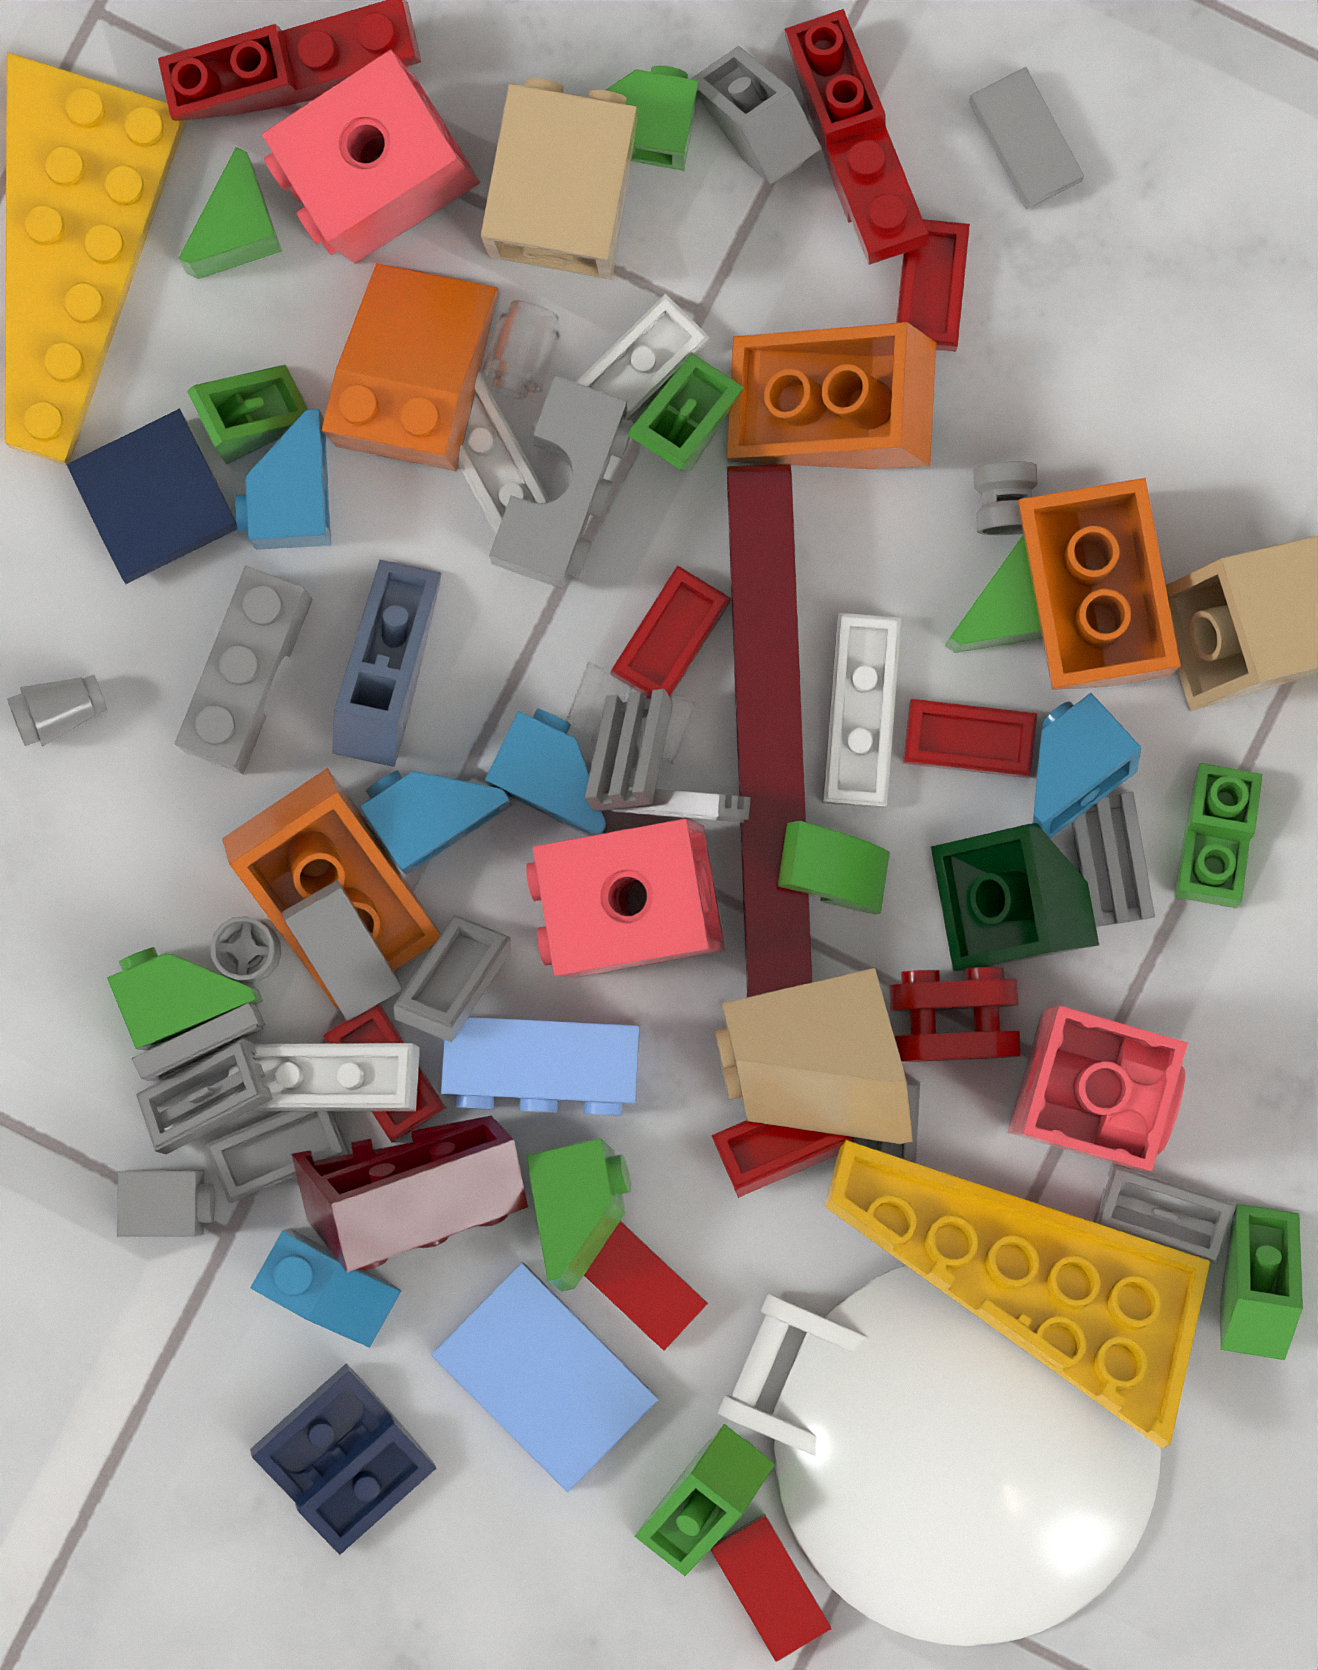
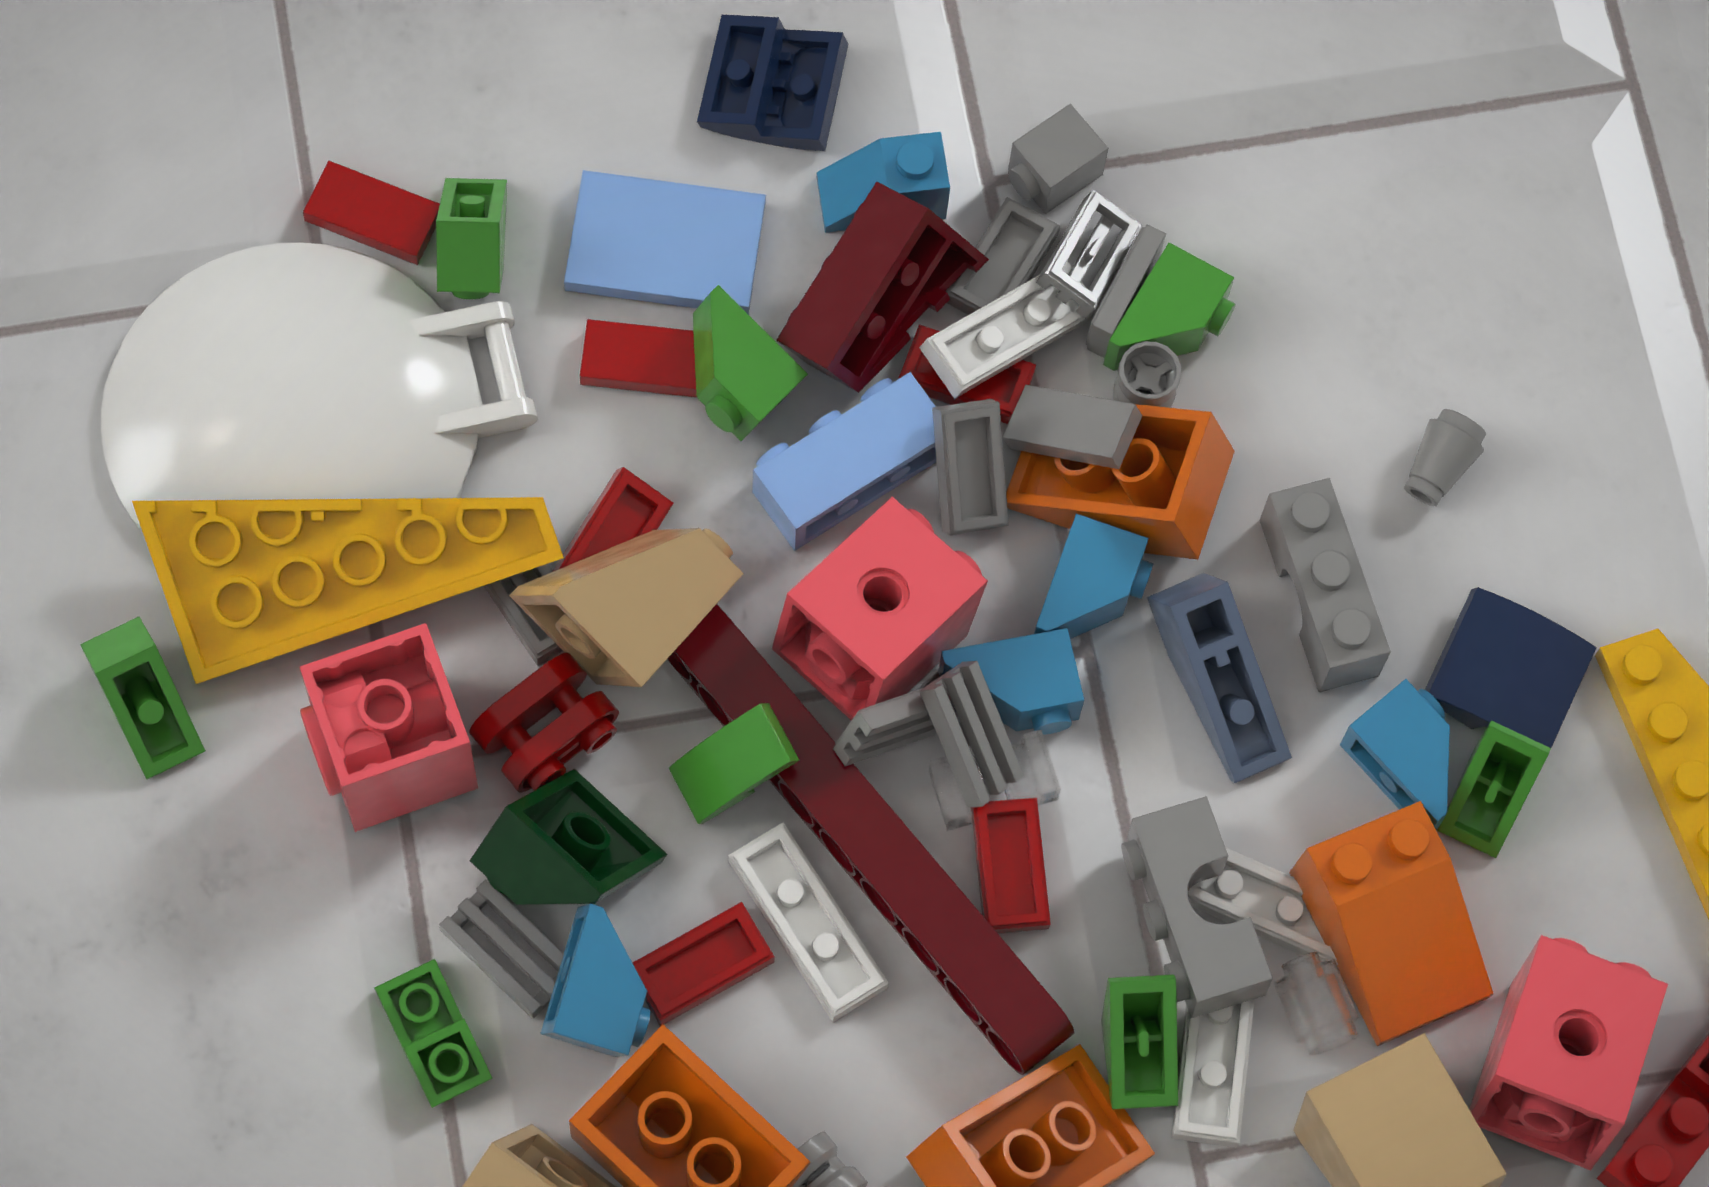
camera: 135 degrees right, 15 degrees down
(233, 223) = (1635, 929): bright green slope -> none
(1004, 609) = (756, 1070): bright green slope -> none
(1111, 1198) = (242, 680): light grey tile -> none

